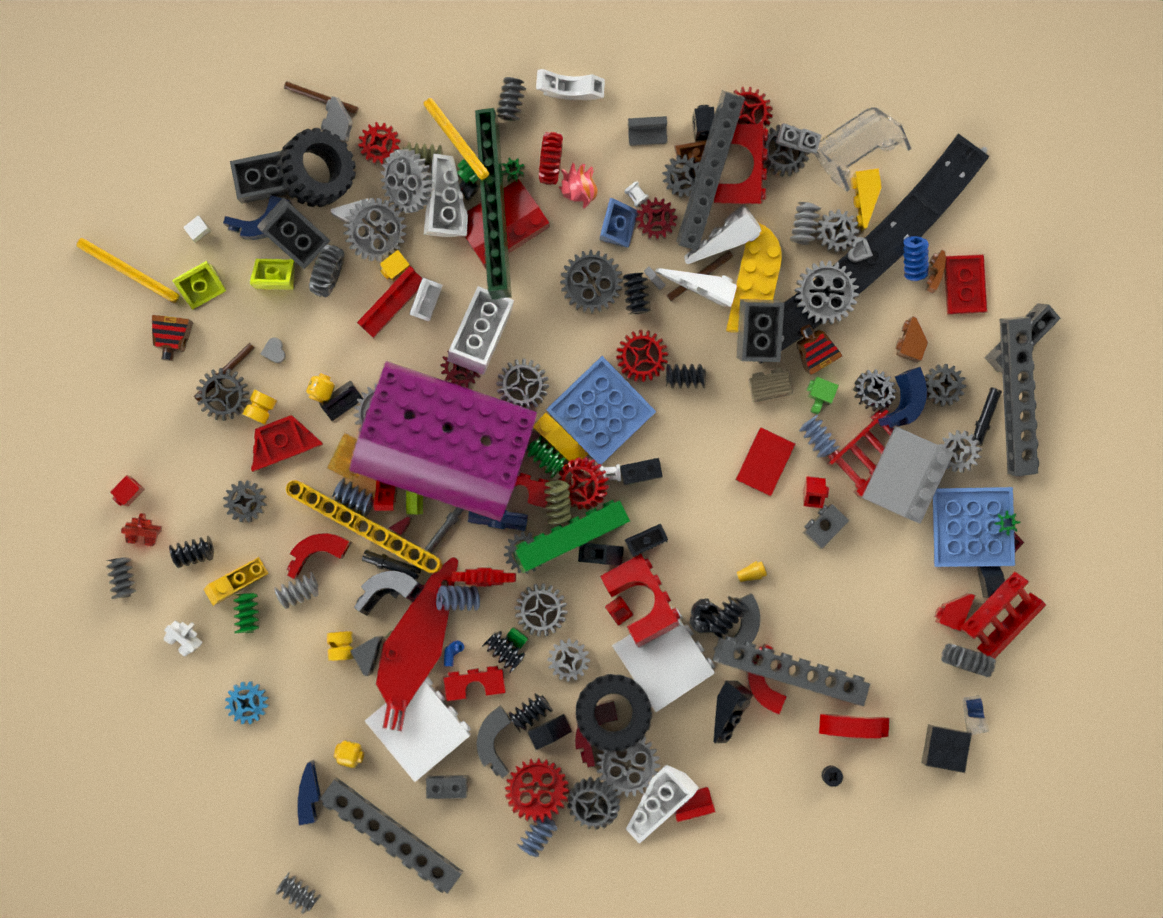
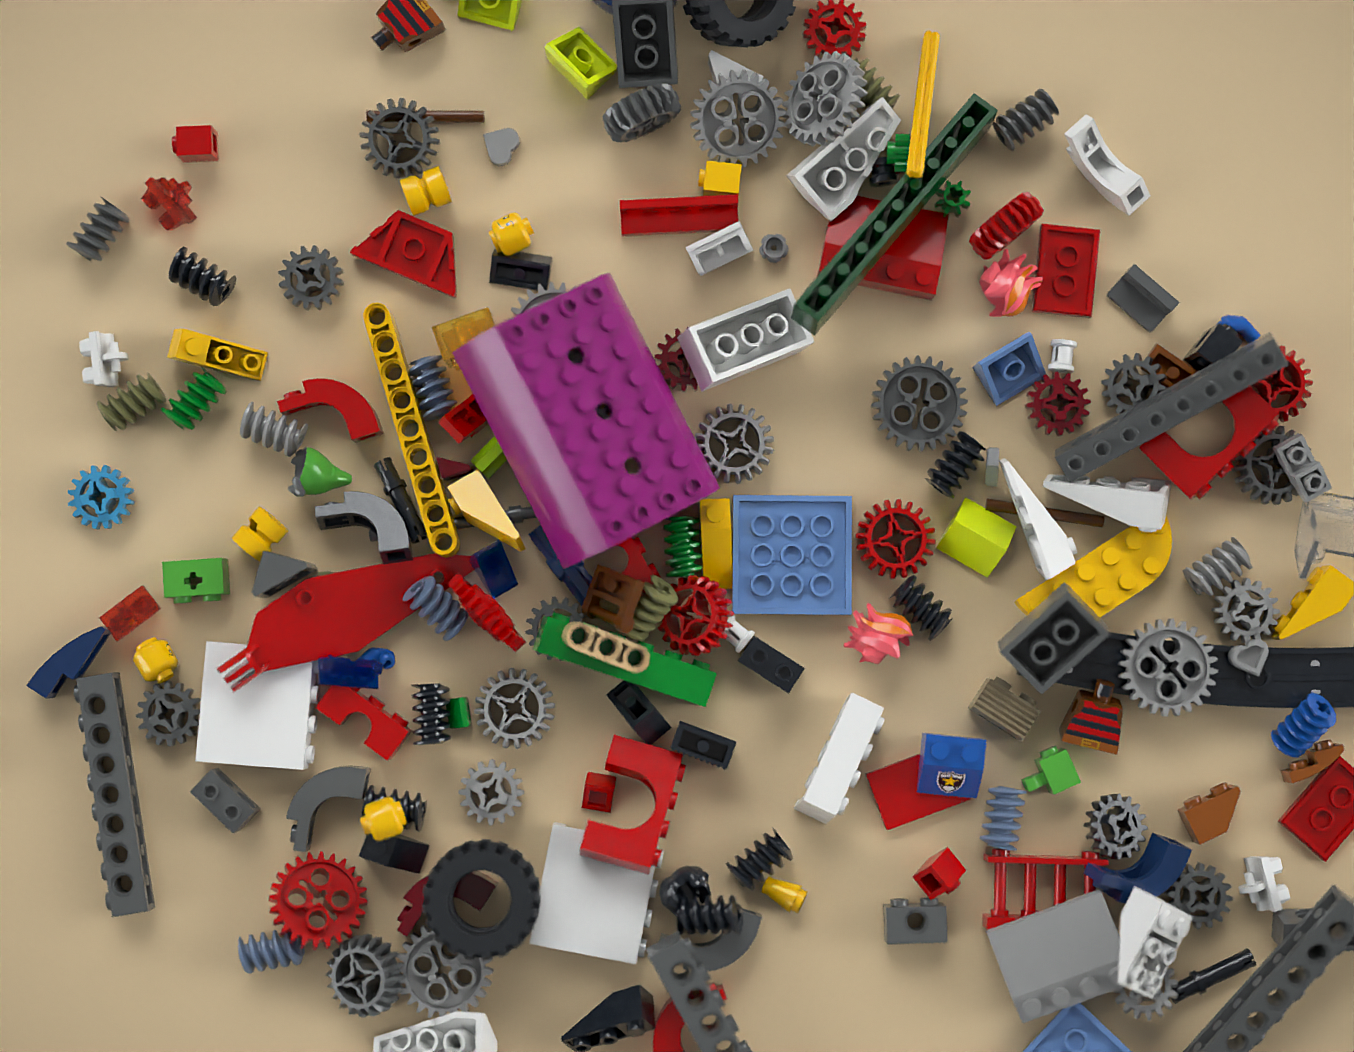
camera: 45 degrees right, 0 degrees up
(217, 643) = (131, 402): none -> olive piece
(315, 743) = (130, 613): none -> clear red hips
(320, 702) = (178, 577): none -> bright green brick
(338, 591) = (316, 474): none -> bright green hat
(371, 769) = (163, 703): none -> dark grey gear
(434, 531) = (481, 509): none -> yellow slope
(444, 671) = (348, 673): none -> clear blue hinge
(446, 274) = (770, 240): none -> light grey plate
(467, 554) = (494, 569): none -> clear blue slope
(530, 720) = (383, 819): none -> yellow head
(534, 506) = (616, 589): none -> reddish brown plate
(564, 533) = (620, 648): none -> tan beam
(599, 149) = (1068, 269): none -> red tile
(678, 408) = (878, 635): none -> coral hair
(679, 318) = (976, 537): none -> neon yellow slope
(706, 99) = (1242, 326): none -> blue arm
(717, 484) = (840, 759): none -> white wedge
(725, 567) = (760, 860): none -> black piece
(771, 436) = (951, 765): none -> blue slope
(940, 428) = (1148, 941): none -> white slope
(968, 351) = (1262, 885): none -> white hips

